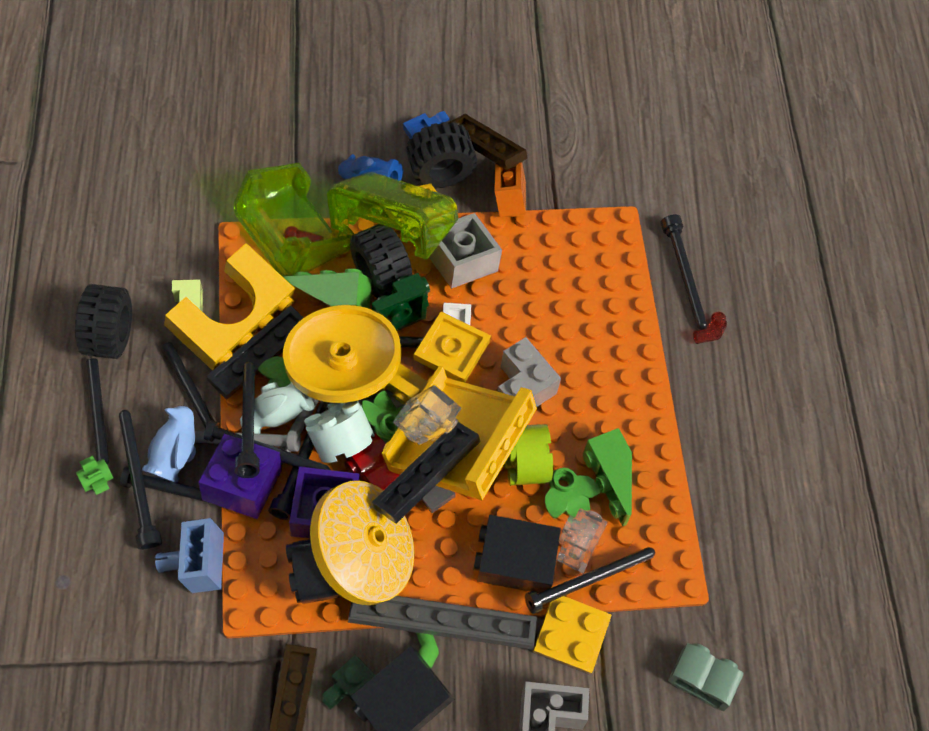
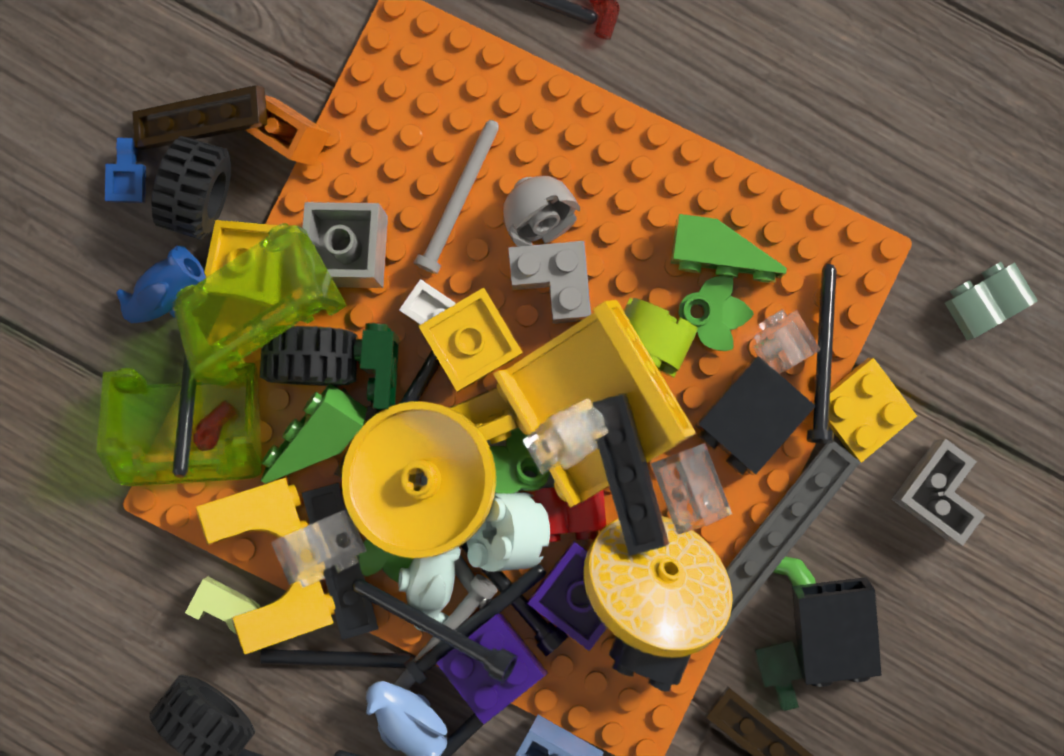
camera: 50 degrees left, 25 degrees up
(260, 323) = (319, 547): none -> clear brick
(293, 219) = (184, 422): none -> black bar
(442, 537) = (691, 489): none -> clear brick
(531, 304) = (429, 259): none -> light grey bar
(562, 347) = (538, 210): none -> light grey cylinder

